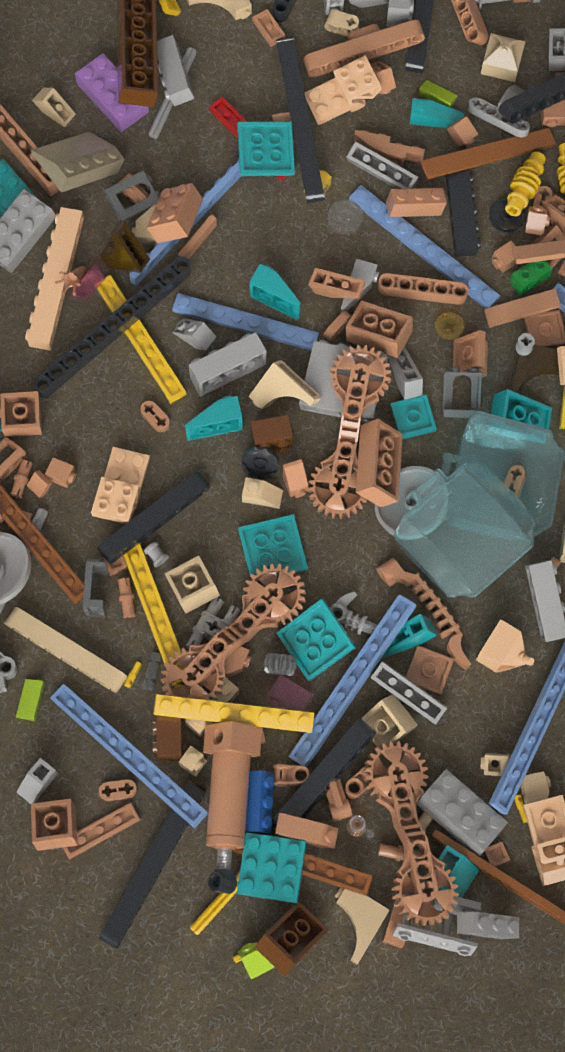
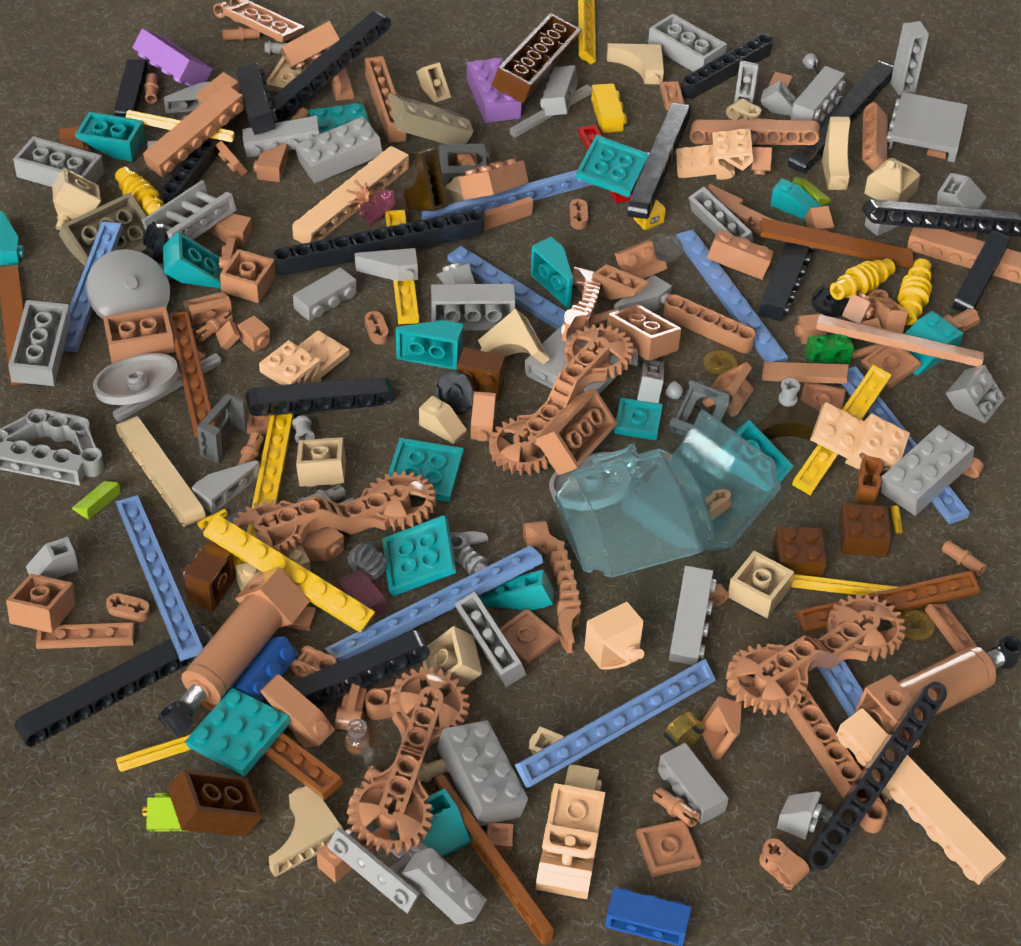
camera: 25 degrees right, 25 degrees down
(95, 402) = (324, 294): none -> light grey brick
(124, 642) = (222, 486): none -> light grey slope
(136, 348) = (389, 264): none -> light grey slope
(192, 761) = (219, 608): tan brick -> none
(222, 69) = (608, 108): none -> yellow brick
(253, 211) = (582, 213): none -> nougat beam
(326, 339) = (582, 313): none -> nougat piece
(339, 253) = (640, 260): none -> nougat bracket
(429, 374) = (675, 392): none -> light grey hinge
(445, 50) = (836, 154): none -> tan arch
(480, 109) = (862, 224): light grey beam -> none

